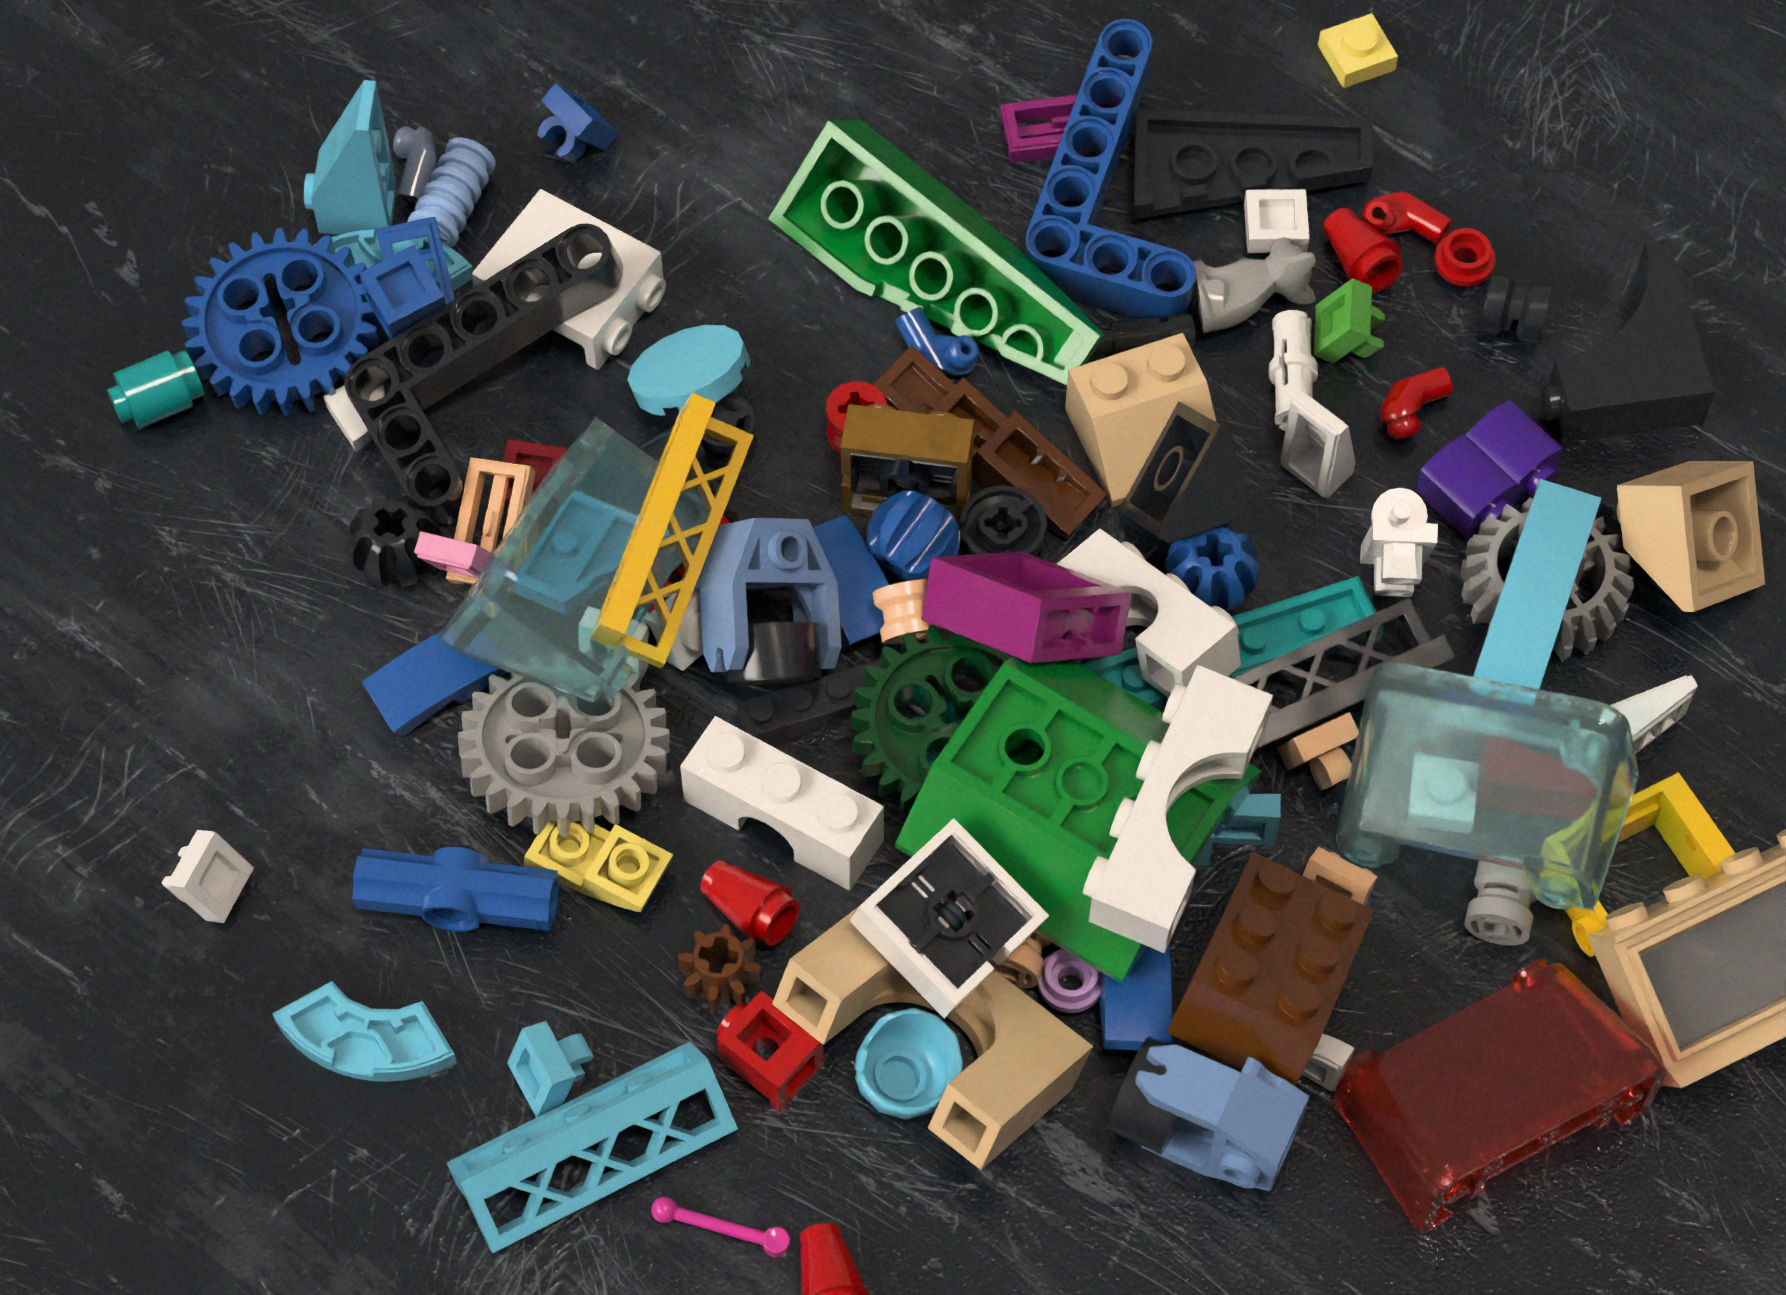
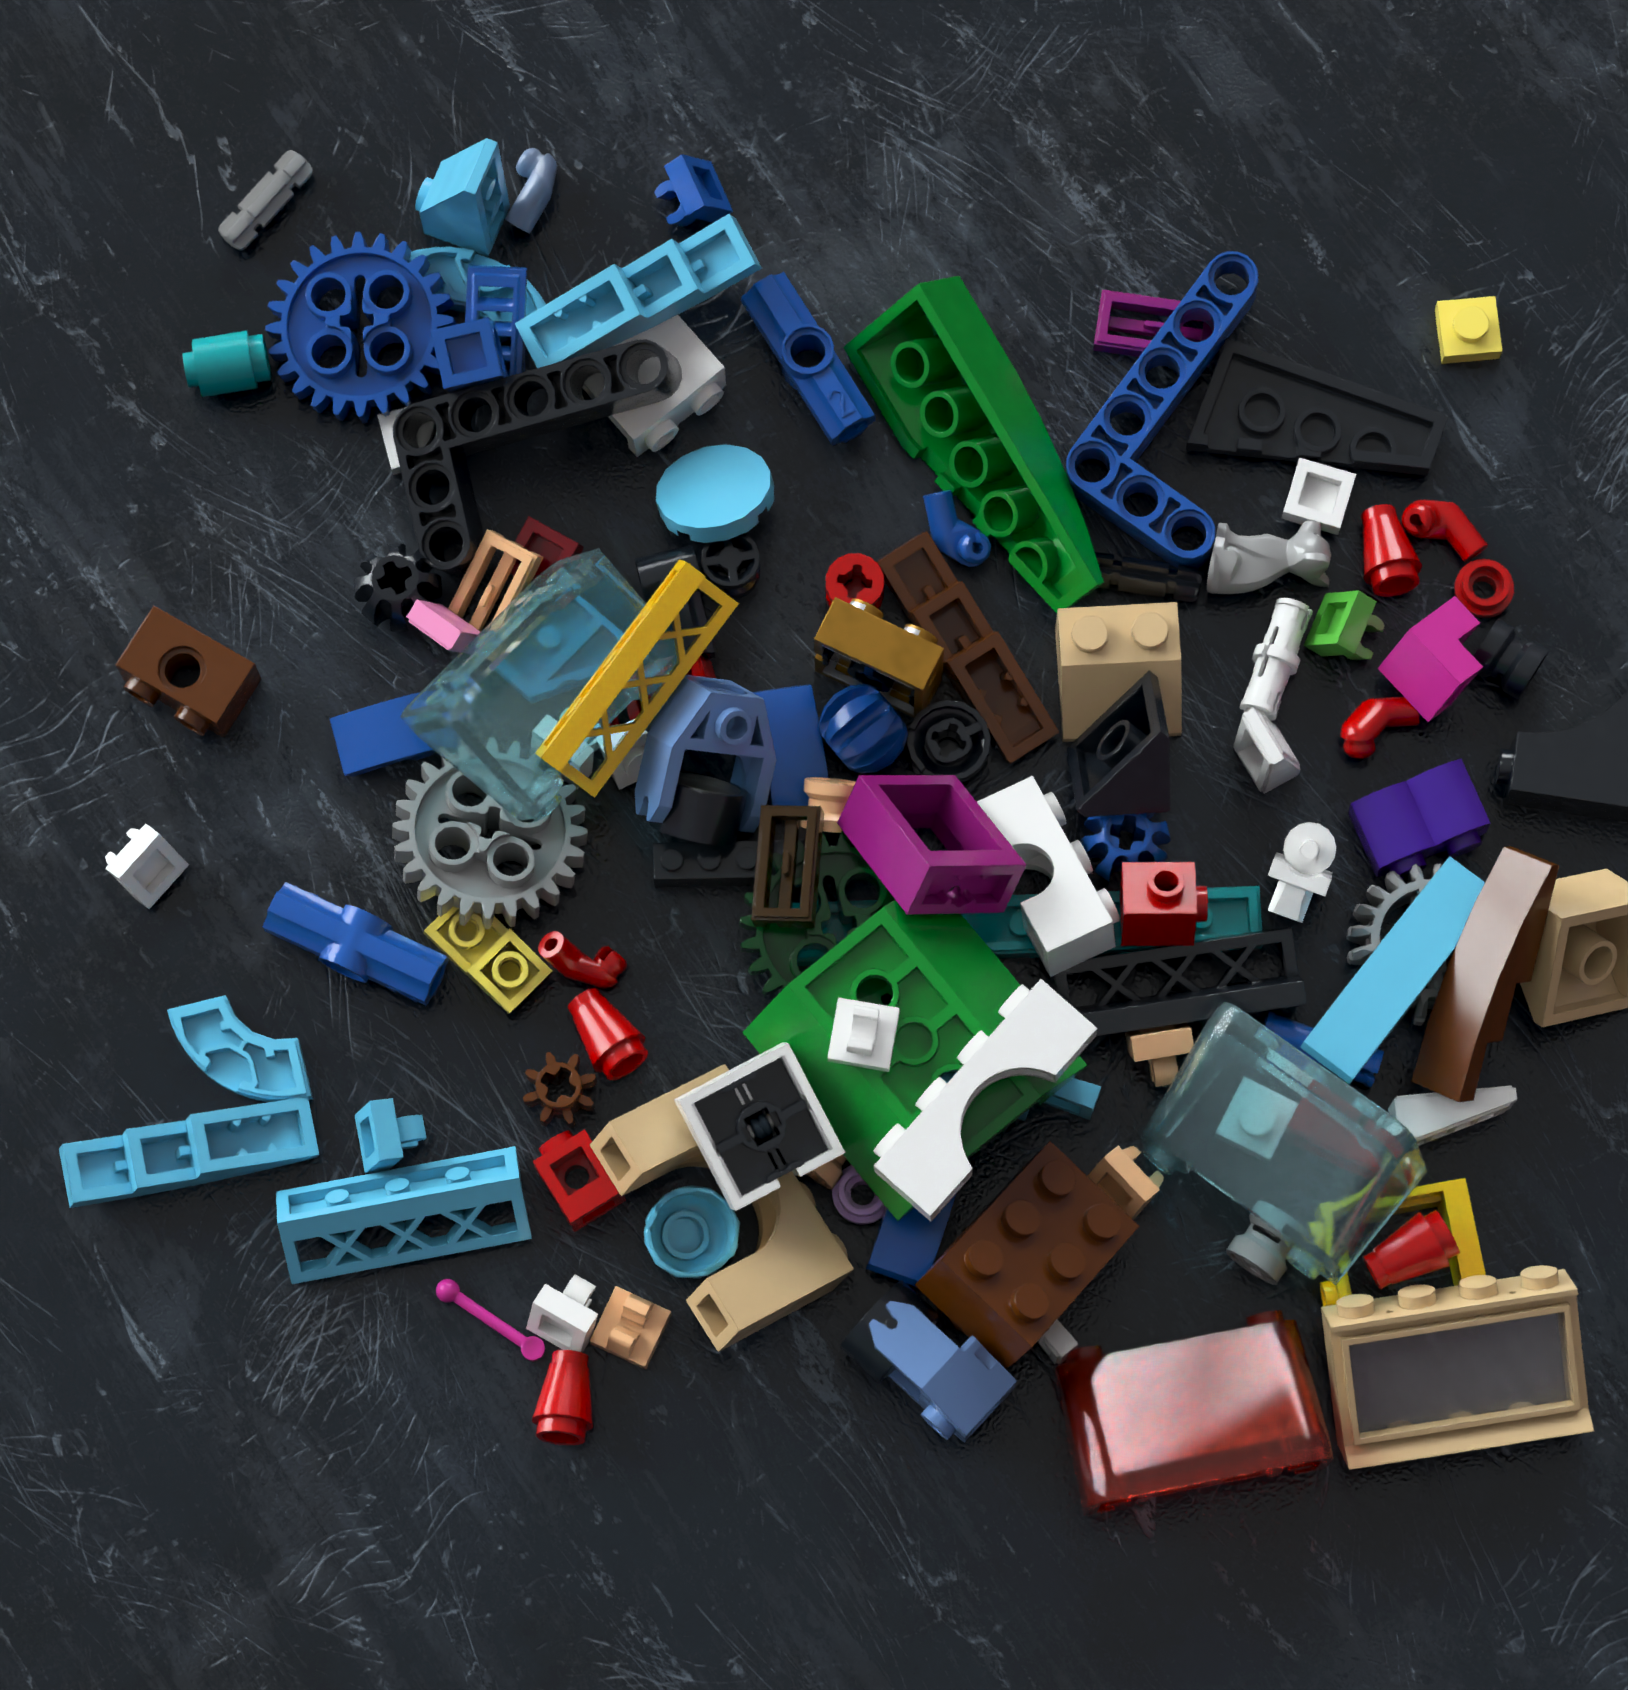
camera: 20 degrees right, 15 degrees up
(150, 240) = (265, 200): none -> light grey axle
(175, 656) = (168, 644): none -> reddish brown brick
(339, 1150) = (189, 1151): none -> medium azure slope
(455, 187) = (556, 233): light blue piece -> none
(568, 193) = (640, 295): none -> medium azure slope
(697, 845) = (578, 966): none -> red arm
(717, 214) = (792, 329): none -> blue piece
(799, 1191) = (564, 1316): none -> white tile
(822, 819) = (664, 950): white arch -> none
(874, 1186) = (630, 1327): none -> light nougat tile
(899, 711) = (785, 913): none -> dark brown tile
(1029, 786) = (863, 1034): none -> white tile
(1273, 606) = (1160, 903): none -> red brick
(1449, 321) = (1431, 662): none -> dark pink piece
(1621, 568) = (1481, 977): none -> reddish brown slope
(1660, 848) = (1412, 1250): none -> red cone

